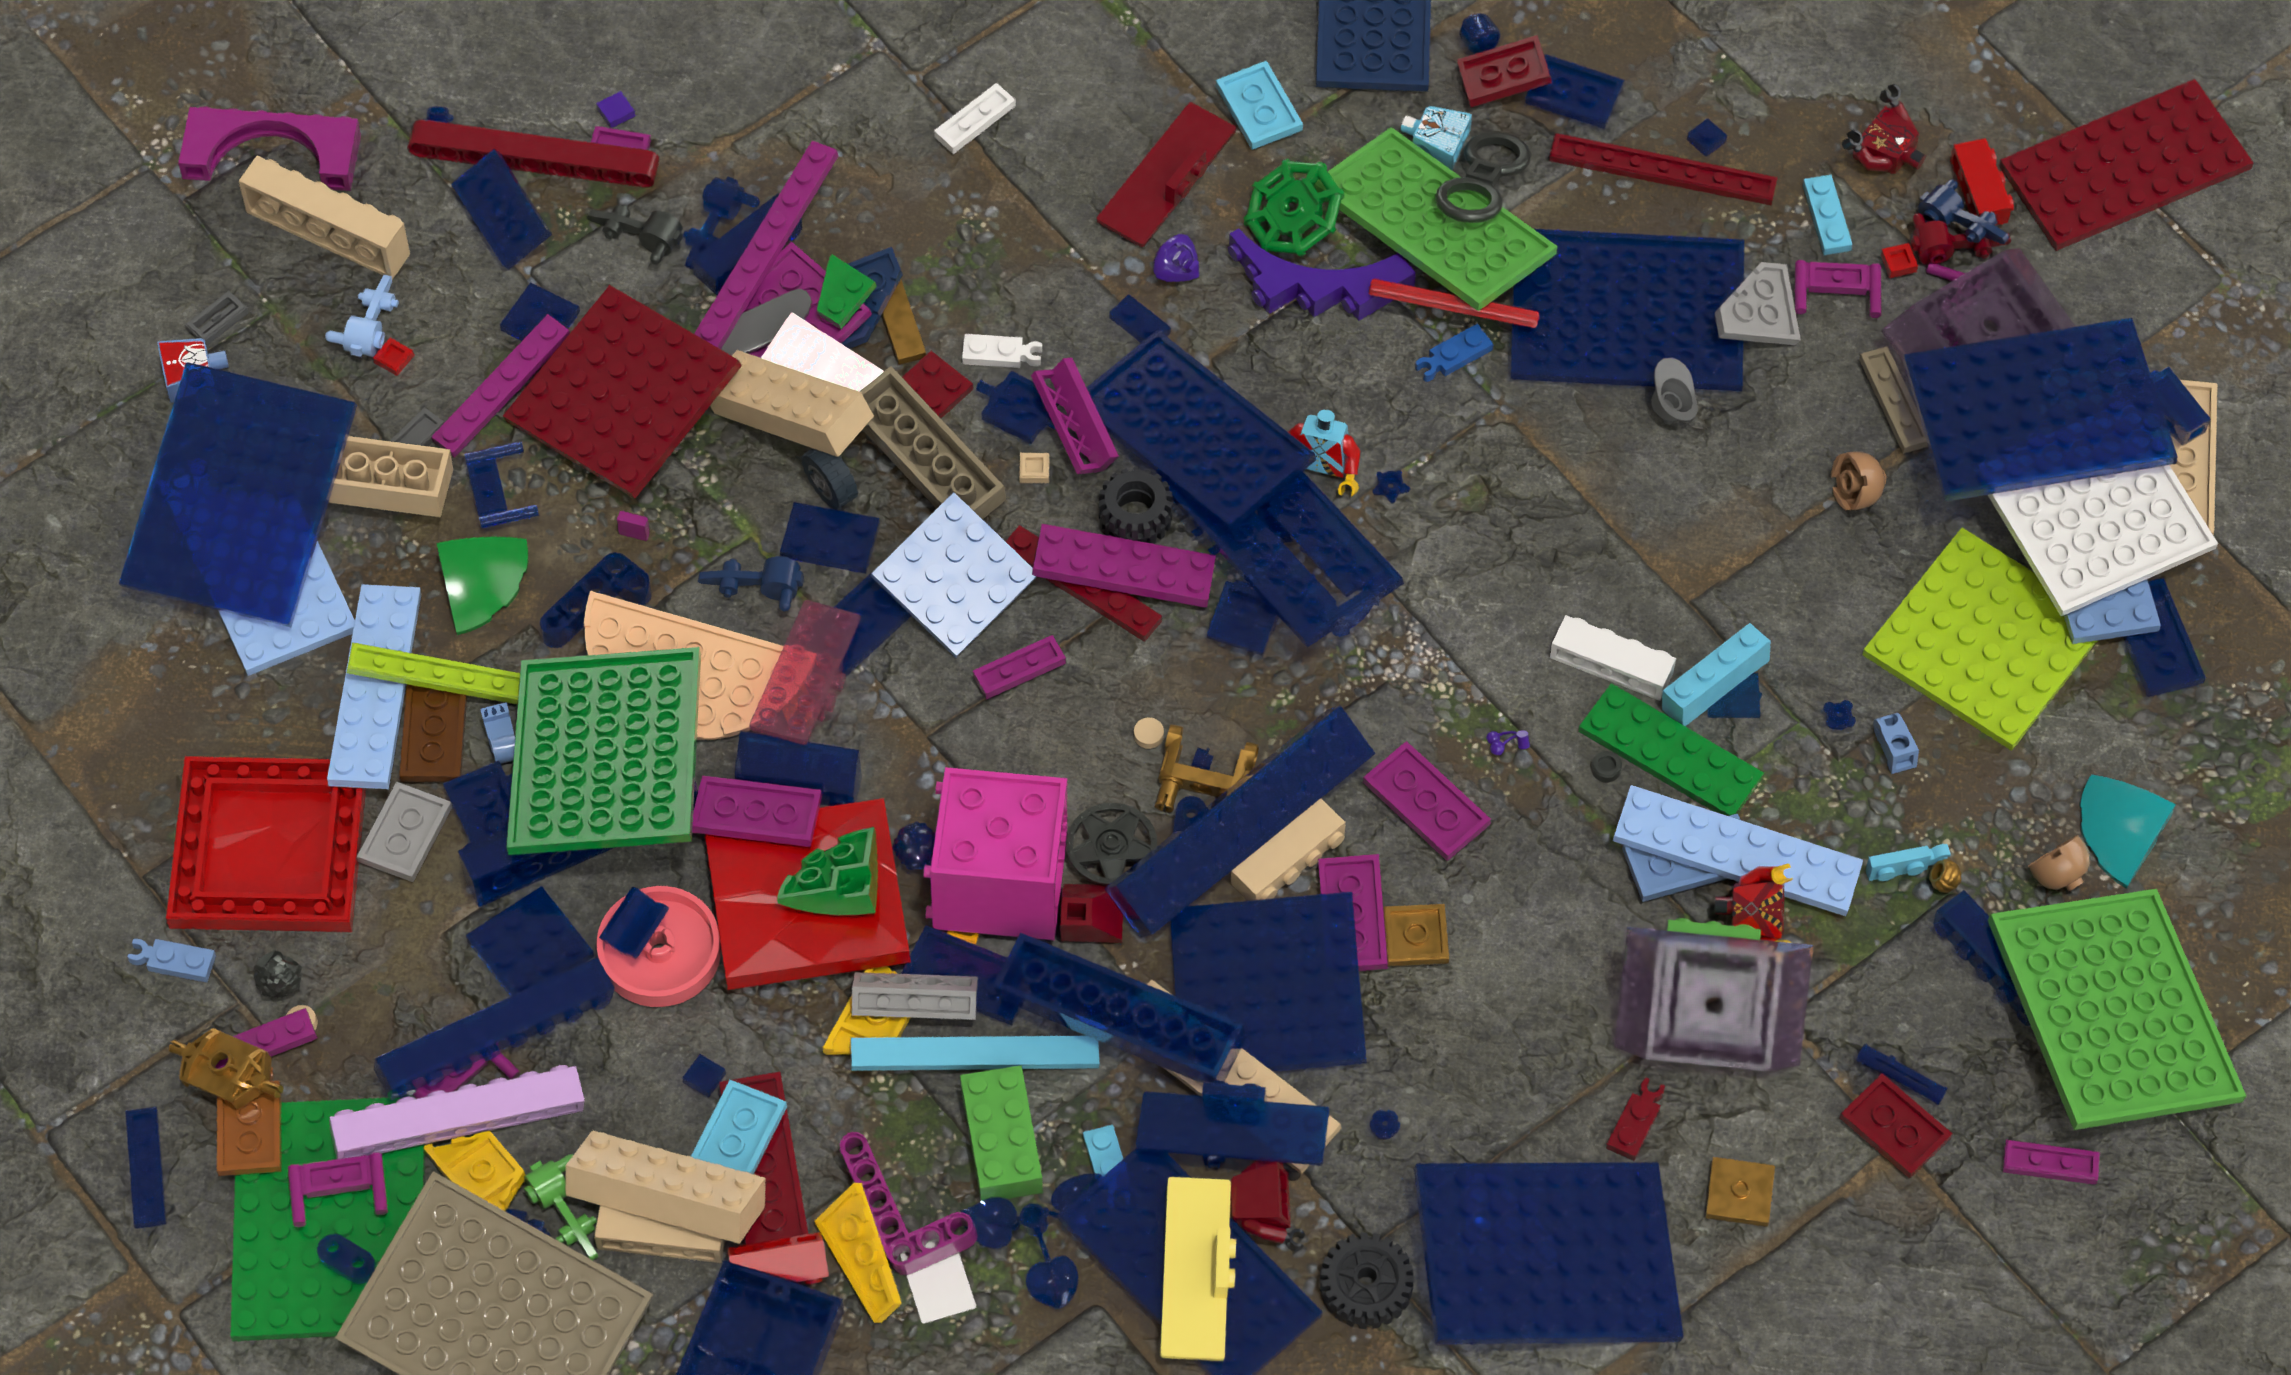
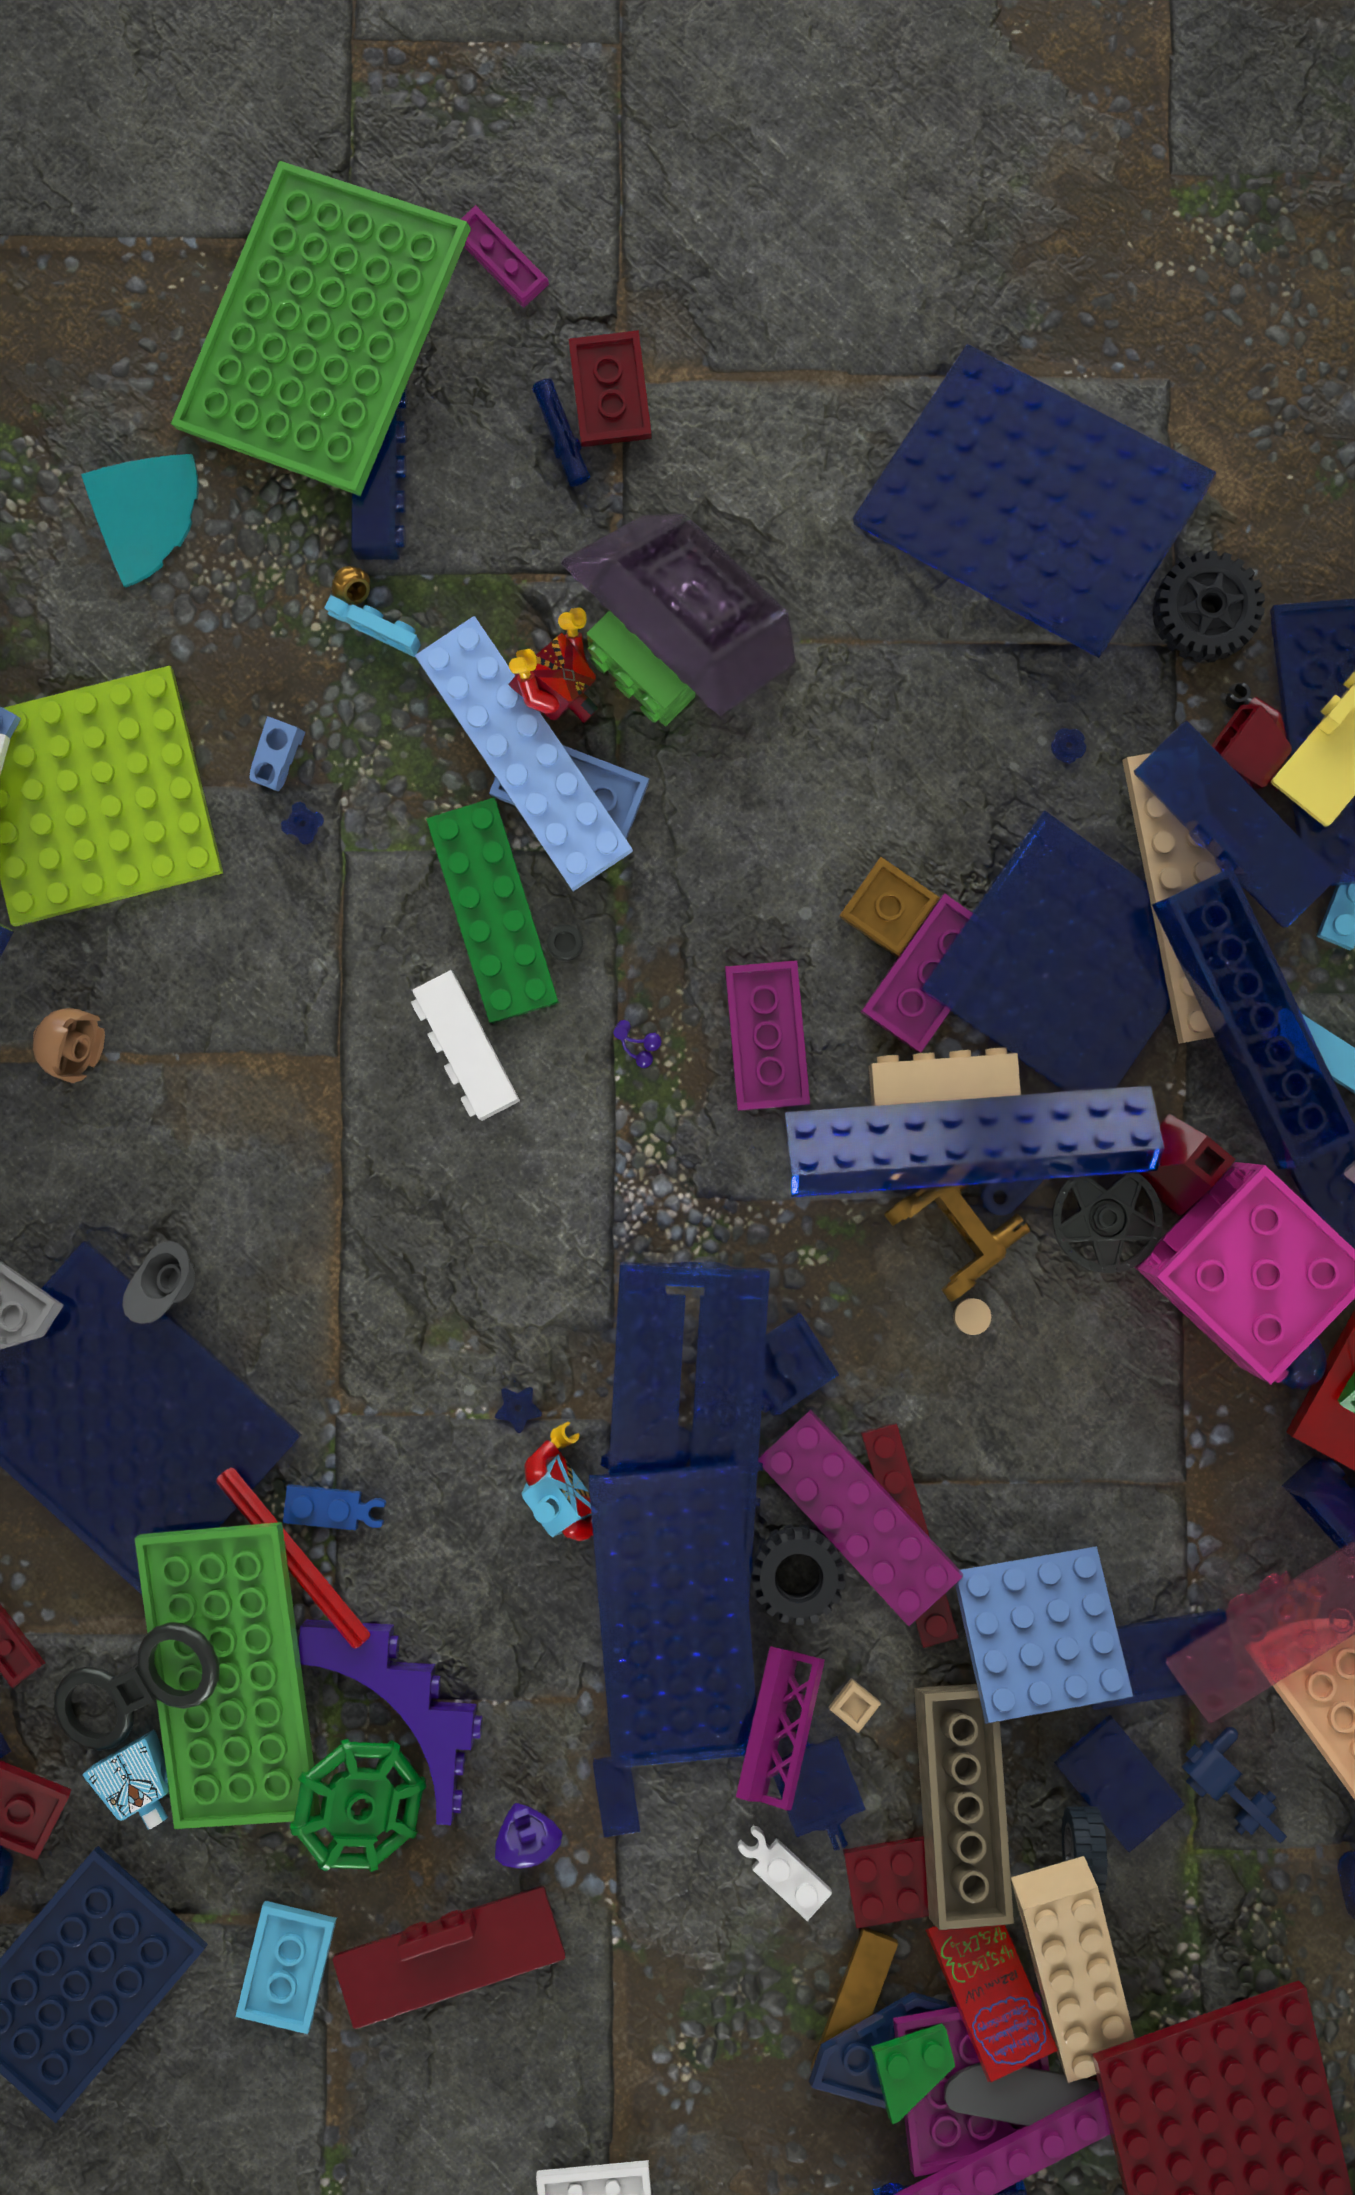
camera: 140 degrees left, 25 degrees up
(633, 525) = (1313, 1951): magenta tile -> none
(1019, 667) = (1045, 1485): magenta plate -> none
(1202, 759) = (947, 1244): clear blue plate -> none
(1636, 1122) = (837, 575): dark red plate -> none
(1716, 675) = (385, 948): medium azure brick -> none
(1739, 702) = (381, 925): clear blue piece -> none
(1740, 1191) = (800, 439): pearl gold plate -> none
(2062, 865) = (236, 511): medium nougat cylinder -> none

